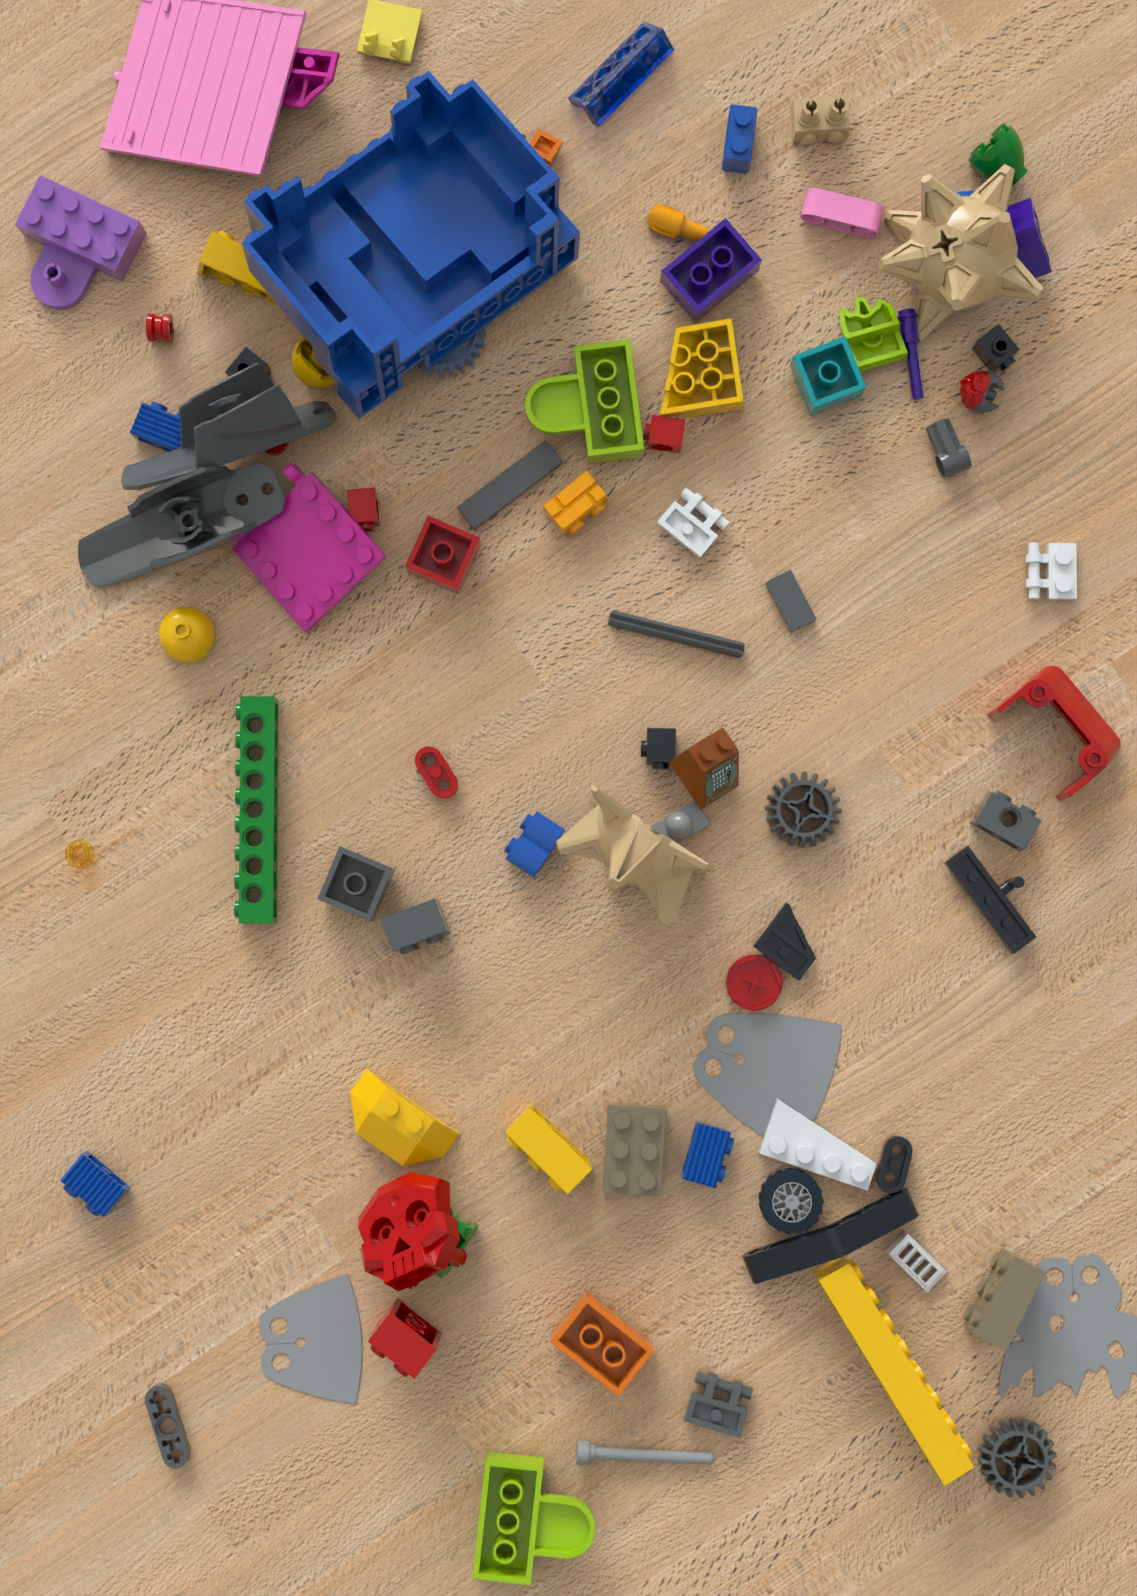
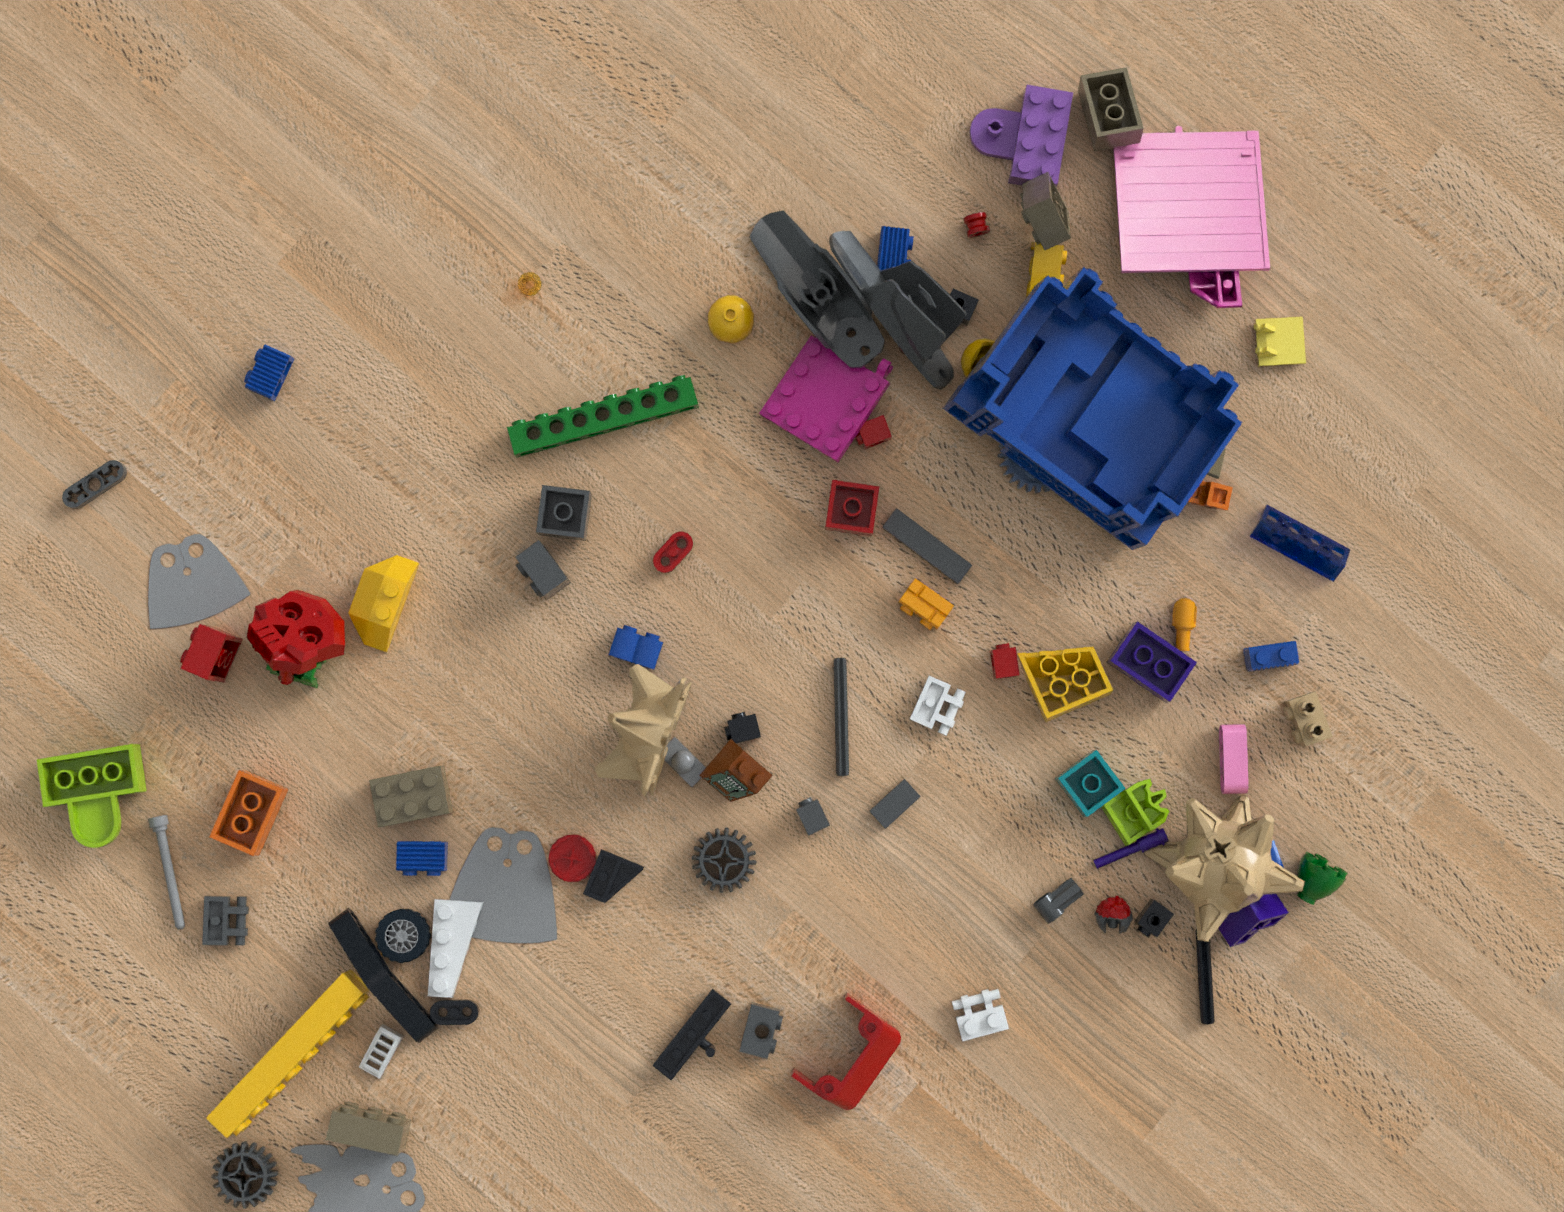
camera: 70 degrees right, 0 degrees up
(71, 139) = (1110, 109): none -> dark tan brick
(167, 240) = (1045, 211): none -> dark tan brick
(548, 1149) = (391, 726): yellow brick -> none
(593, 401) = (1013, 596): lime brick -> none
(780, 696) = (812, 815): none -> dark grey brick
(1075, 313) = (1205, 981): none -> black axle

